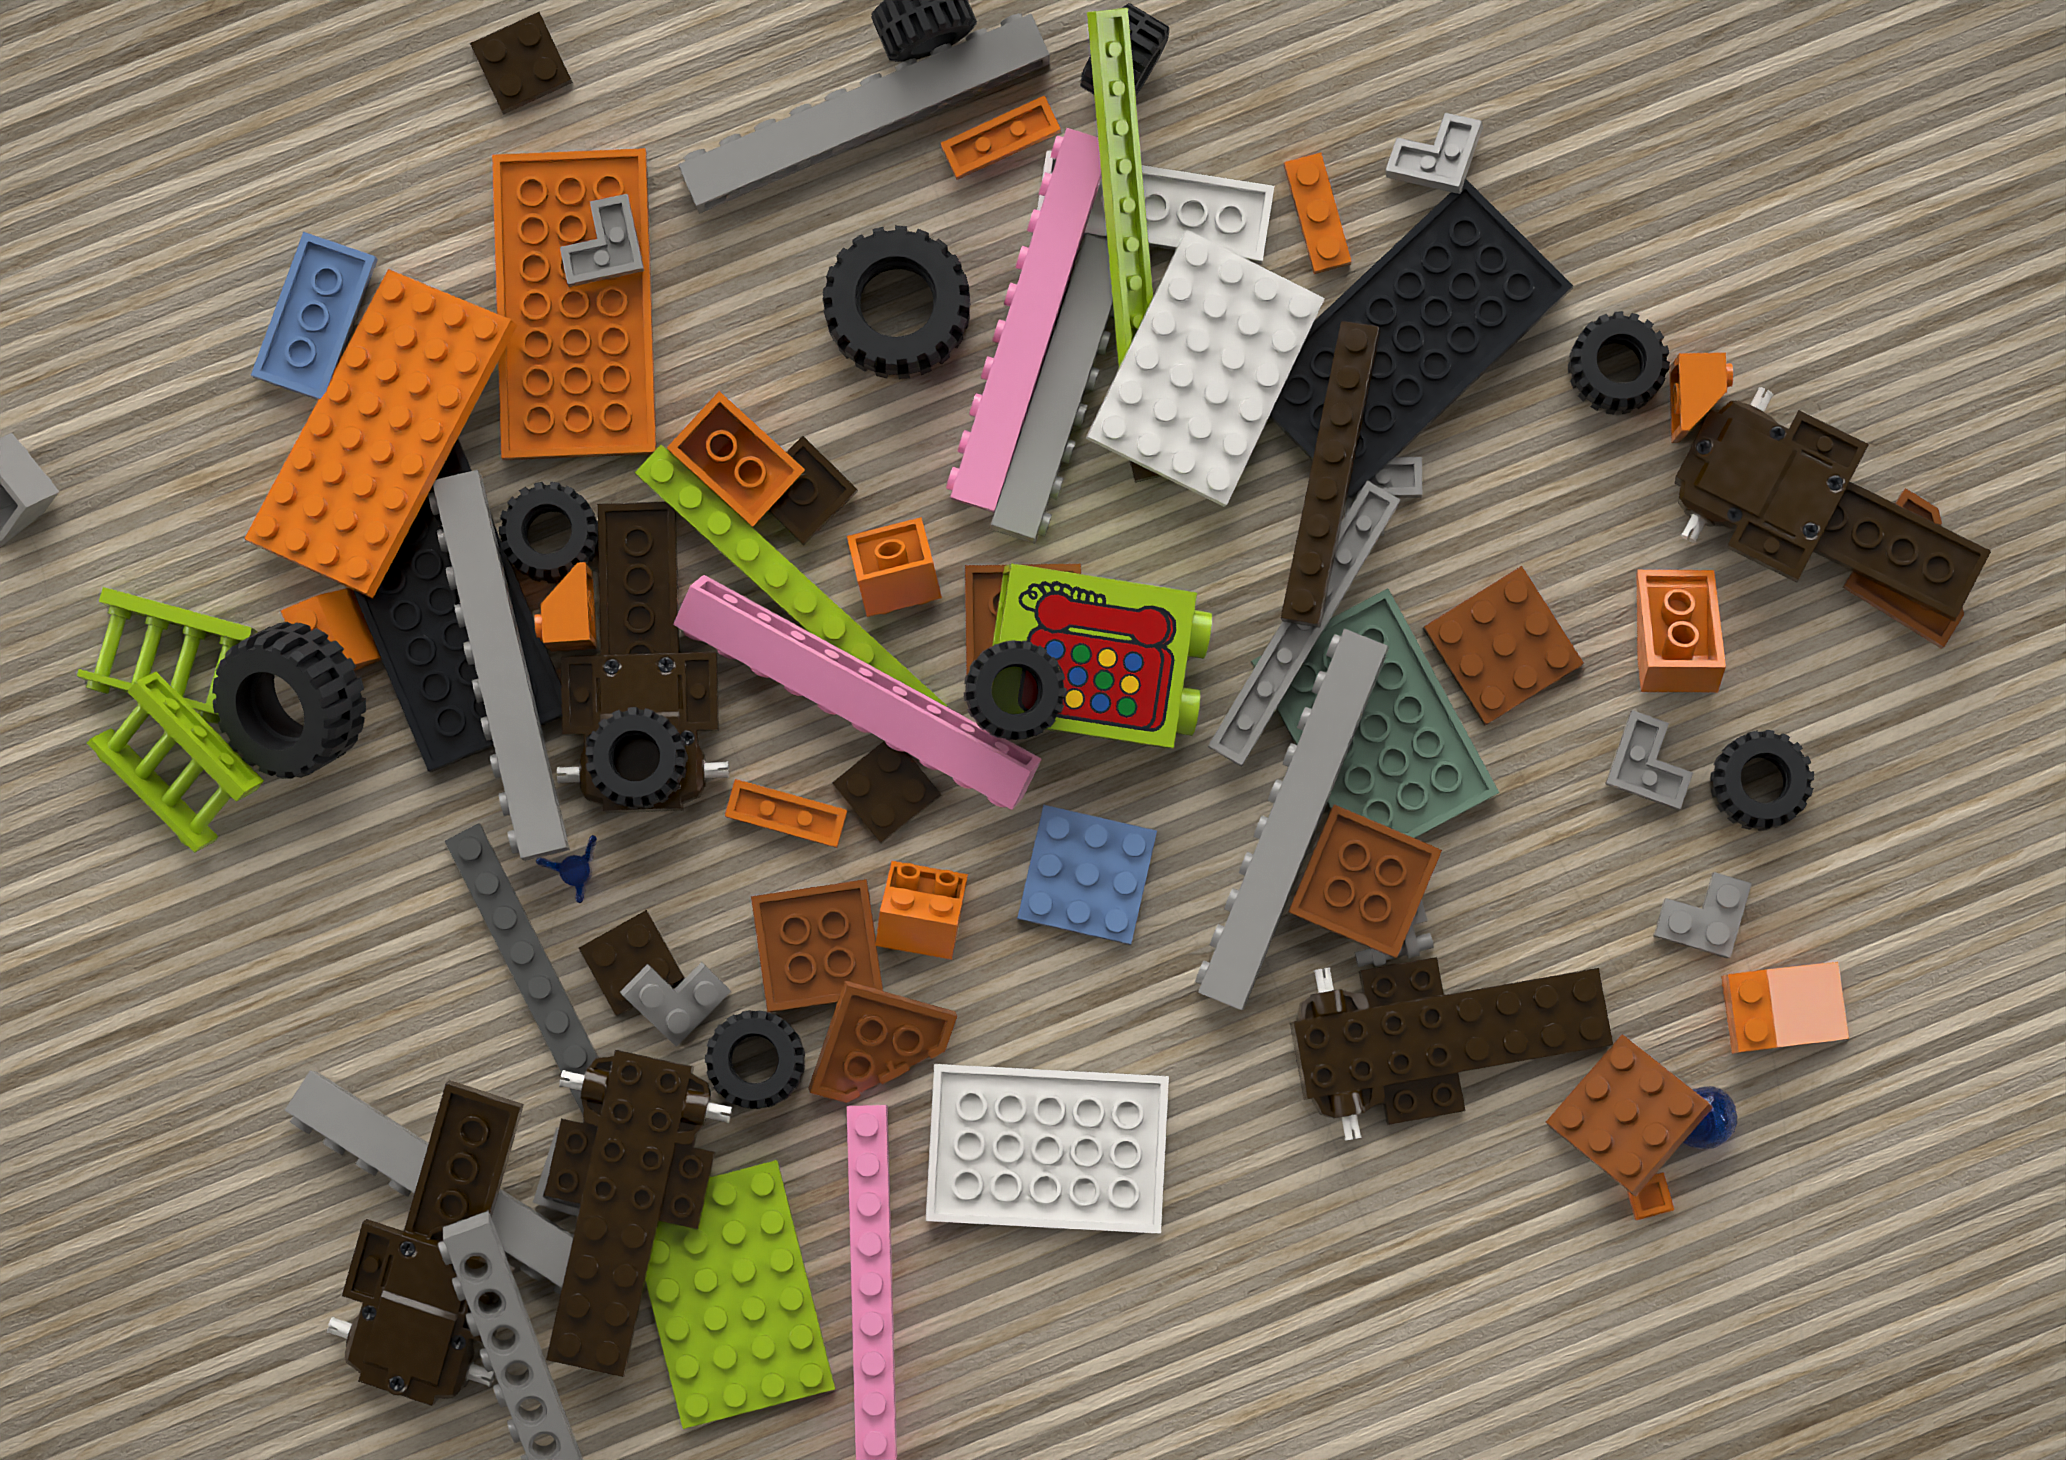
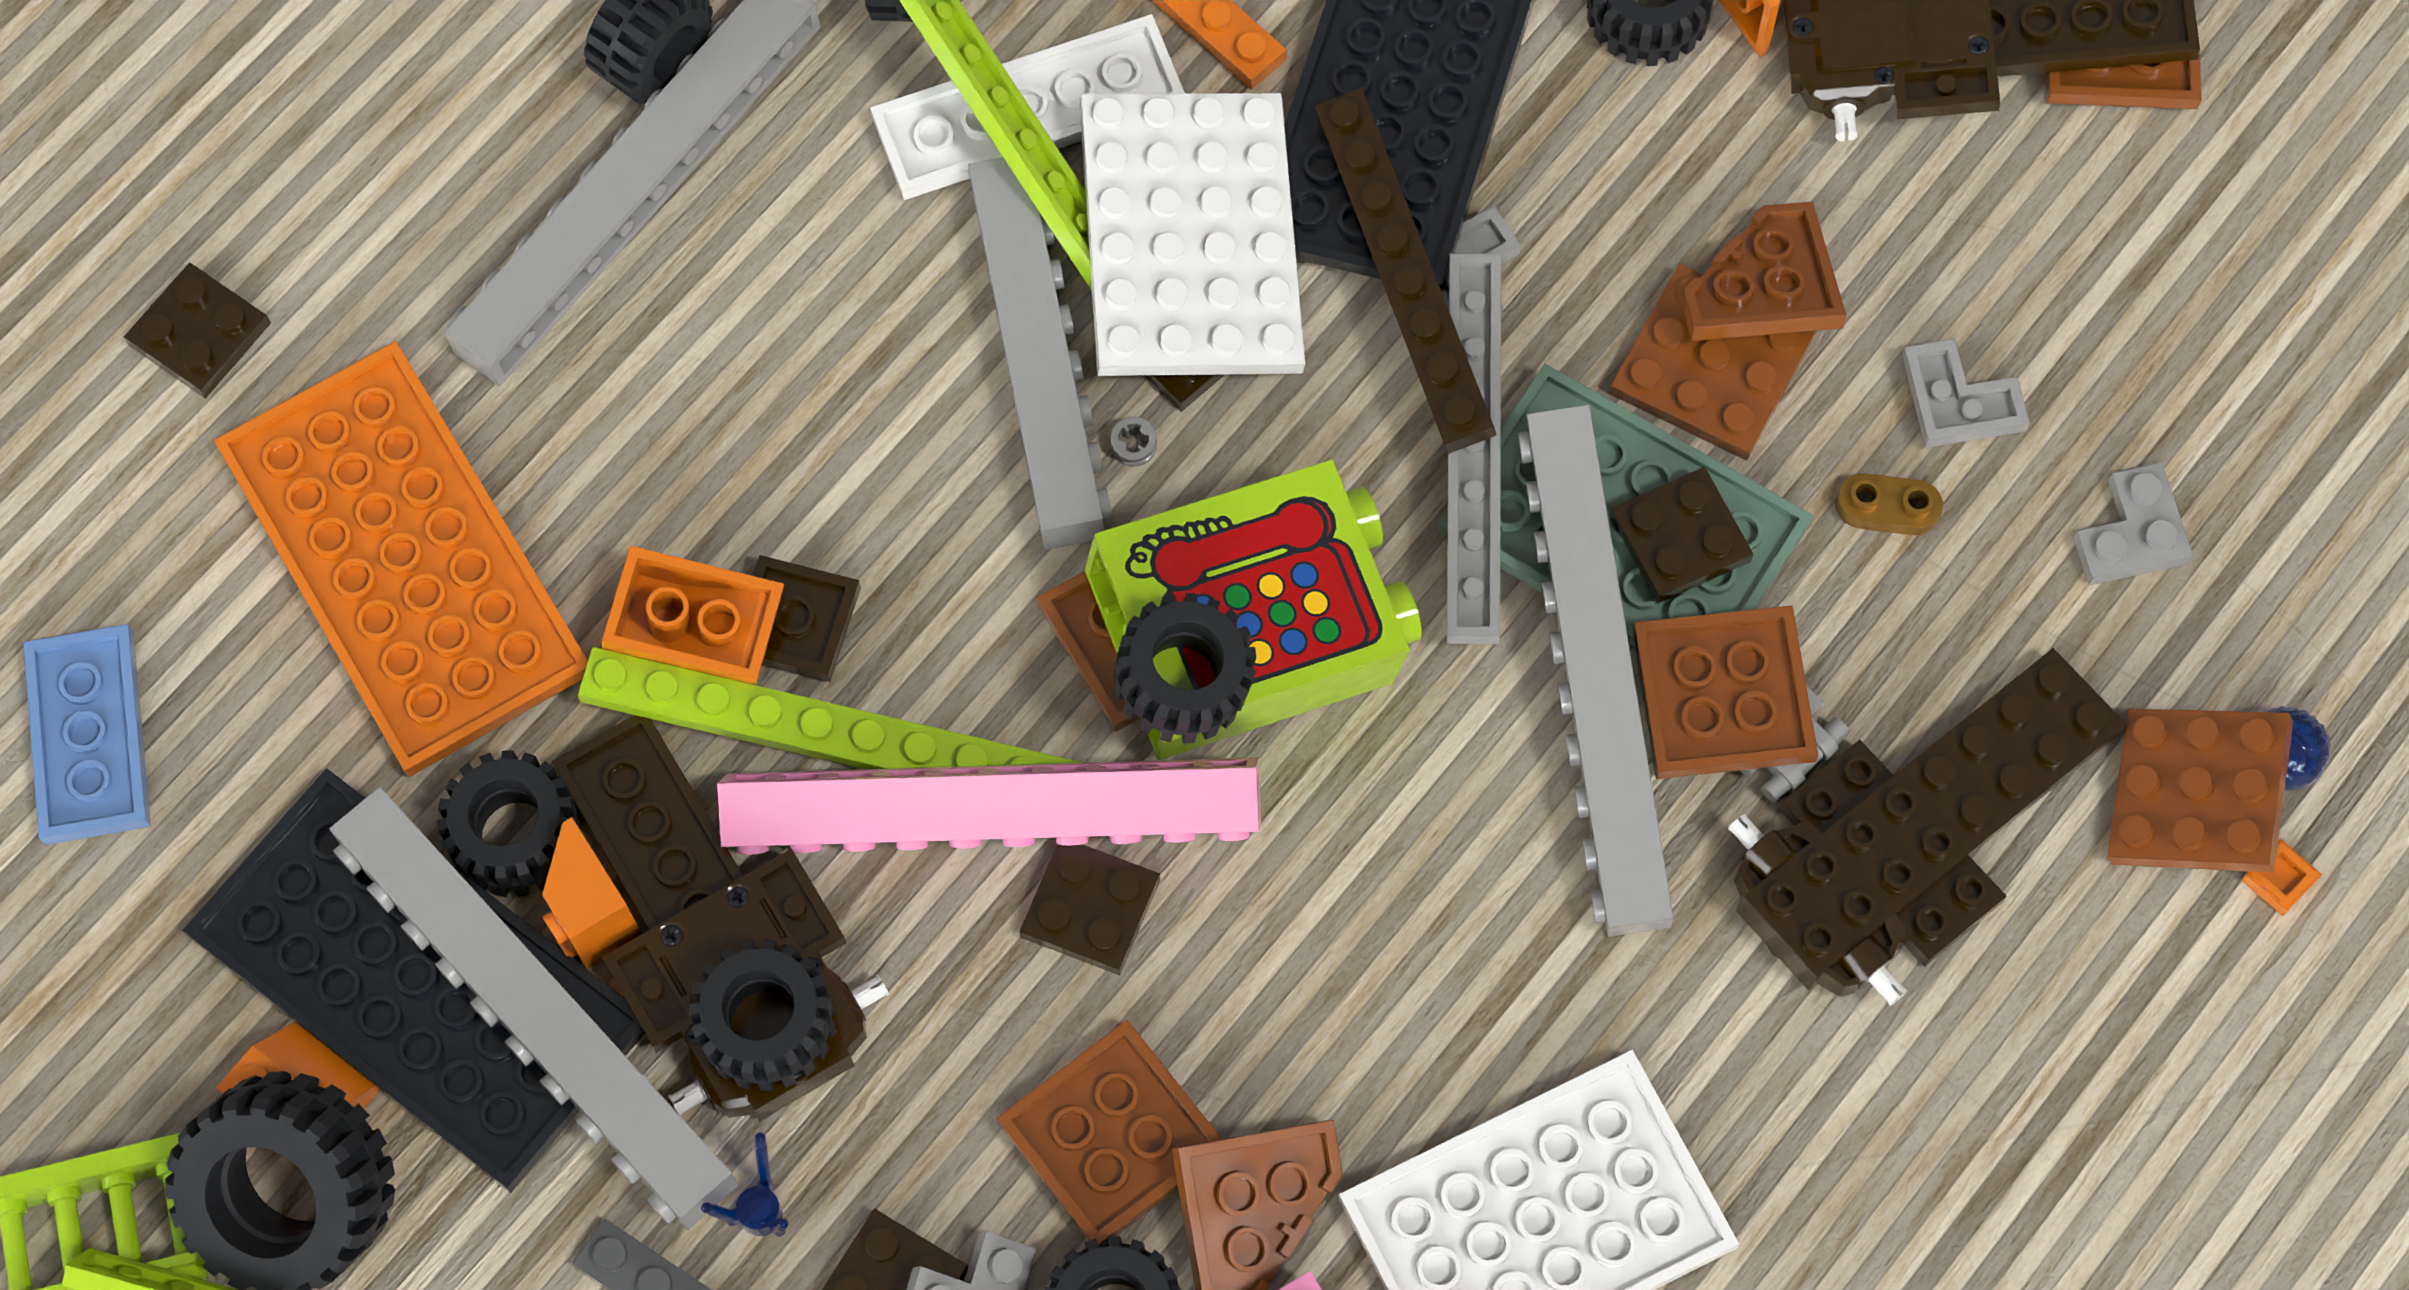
camera: 30 degrees left, 15 degrees down
(380, 432) = (236, 818): orange plate -> none
(613, 252) = (416, 464): light grey plate -> none
(786, 813) = (983, 998): orange plate -> none
(887, 252) = (777, 292): black tyre -> none
(894, 567) = (955, 645): orange slope -> none
(921, 910) = (1216, 1020): orange slope -> none
(1000, 137) = (808, 124): orange plate -> none
(1030, 321) = (959, 295): bright pink brick -> none
(1078, 489) = (1119, 448): none -> light grey bush
(1087, 874) = (1390, 874): medium blue plate -> none
(1403, 758) = (1681, 534): none -> dark brown plate
(1555, 812) = (1890, 506): none -> pearl gold plate
(1568, 614) = (1767, 280): none -> dark orange plate
(1679, 631) = (1903, 240): orange slope -> none
(1784, 1007) = (2287, 579): slope -> none
(1788, 760) = (2107, 306): black tyre -> none

